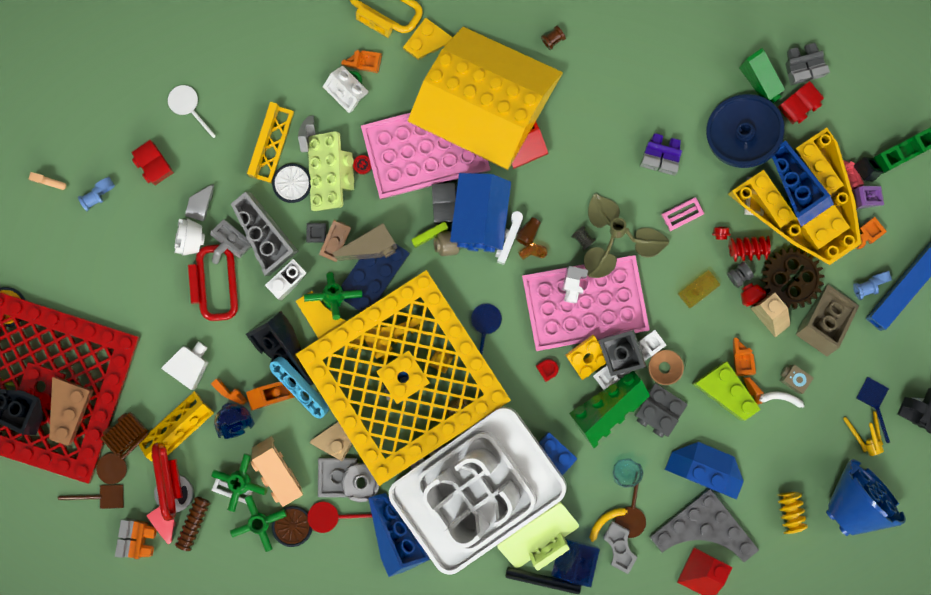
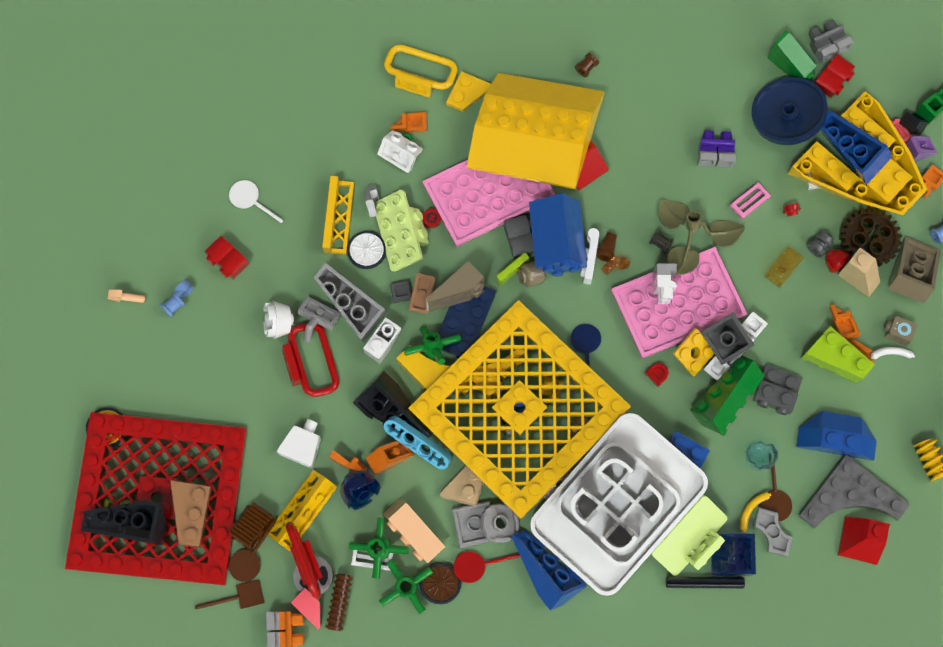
camera: 15 degrees left, 10 degrees down
(198, 203) = (280, 287): light grey slope -> none
(675, 363) = (778, 339): medium nougat piece -> none
(749, 247) = (822, 216): red piece -> none

